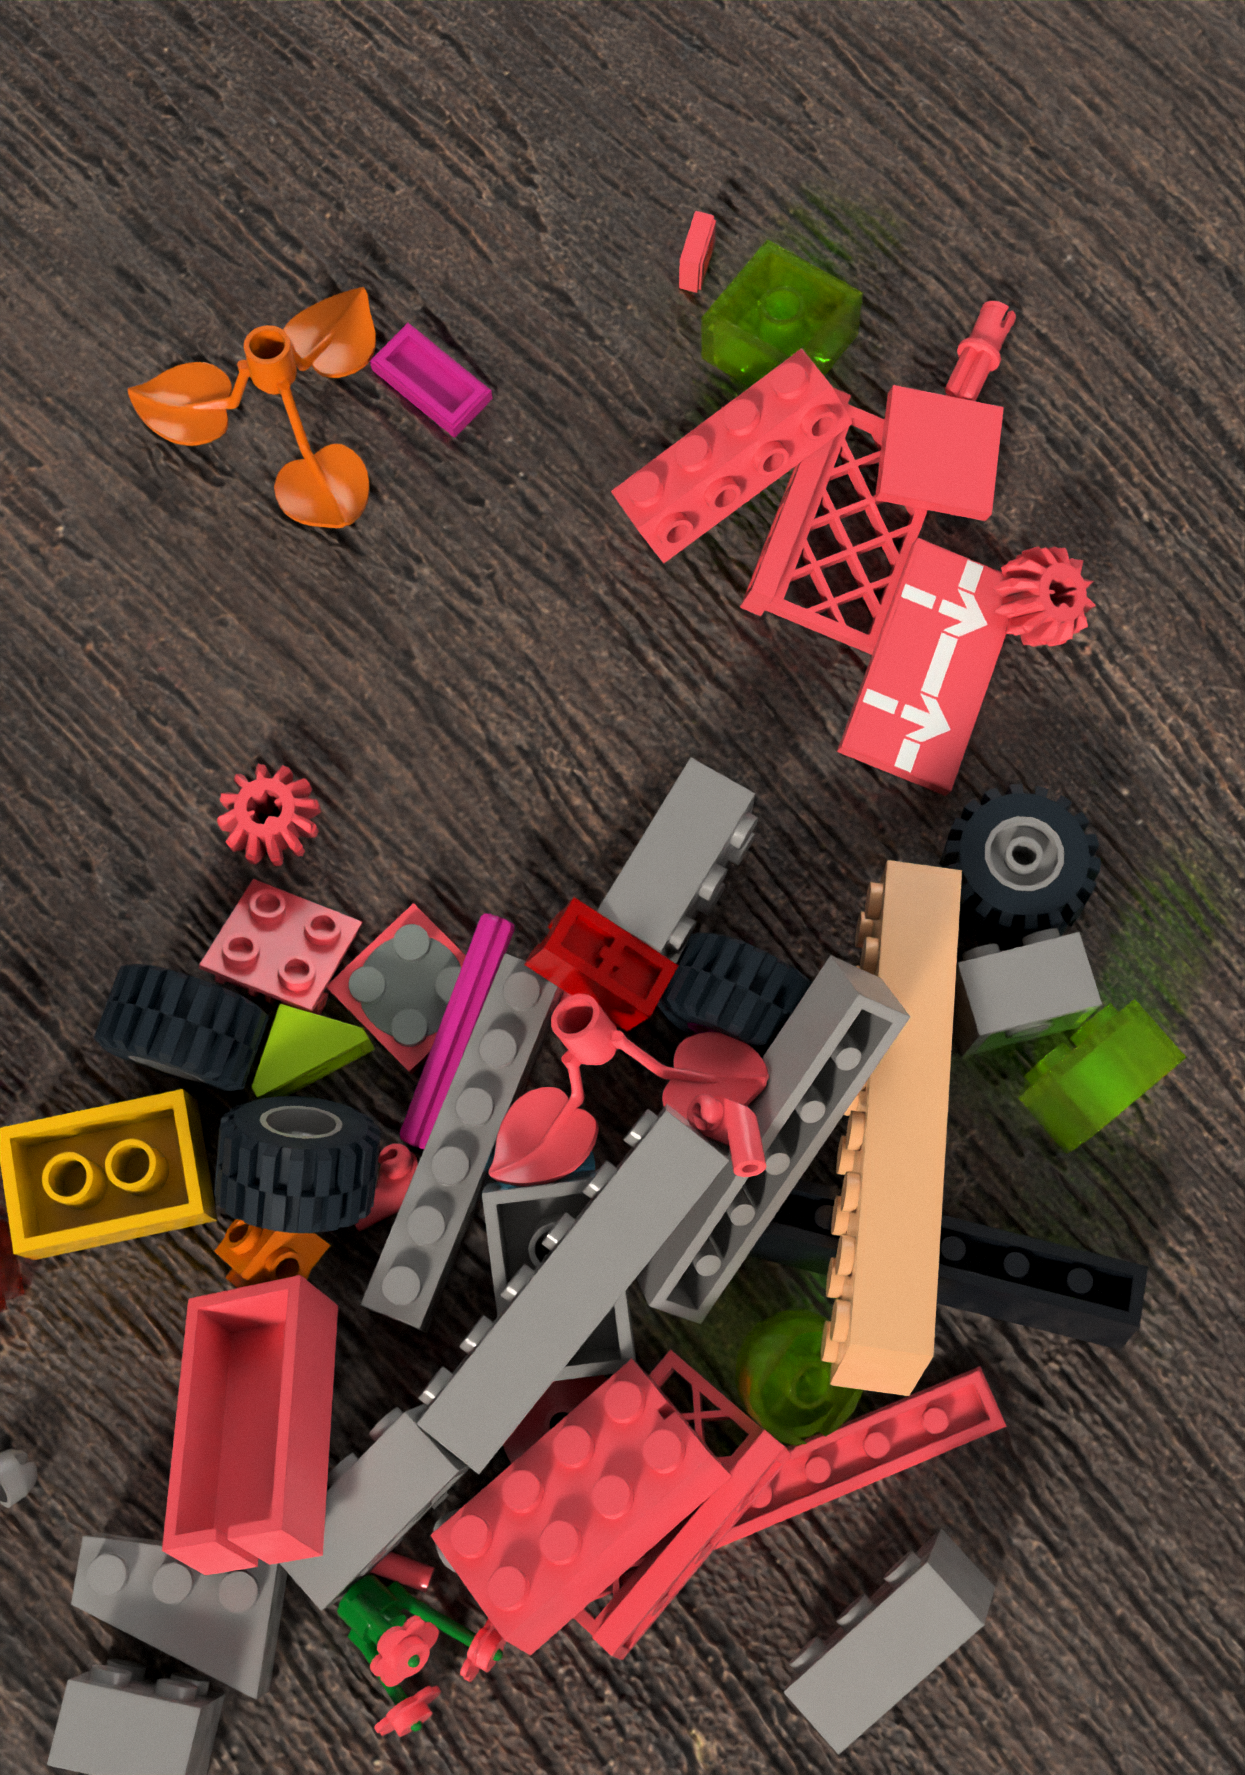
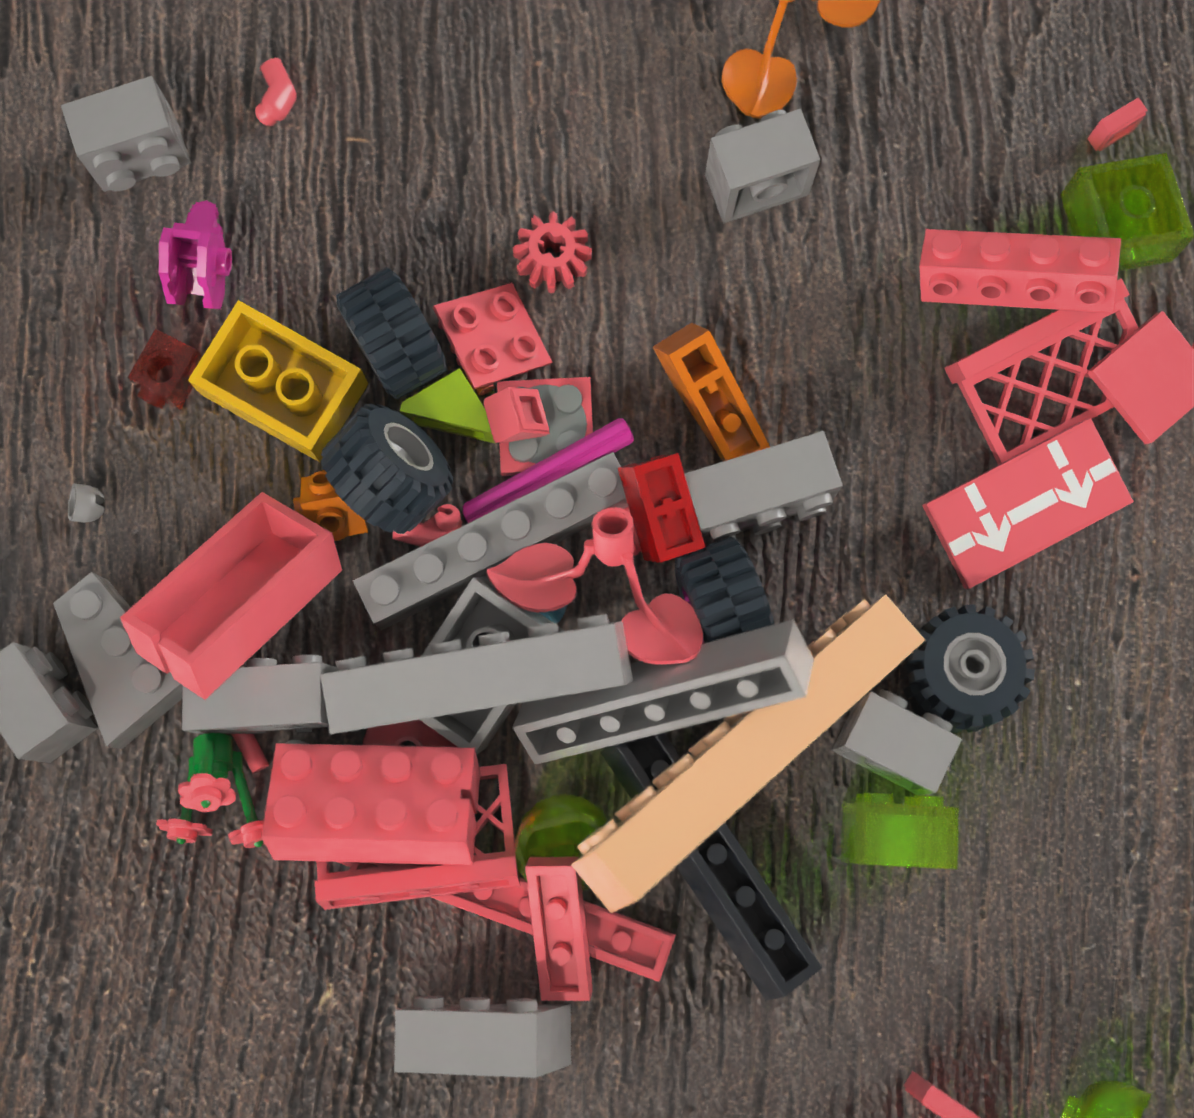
camera: 40 degrees right, 5 degrees up
(376, 1001) = (516, 415): none -> coral slope
(400, 560) = (761, 164): none -> light grey brick
(431, 380) = (882, 69): dark pink tile -> none
(544, 817) = (710, 391): none -> orange slope
(733, 1126) = (646, 667): coral arm -> none
(869, 1461) = (559, 929): none -> coral plate
(1044, 596) = (1136, 521): coral gear -> none

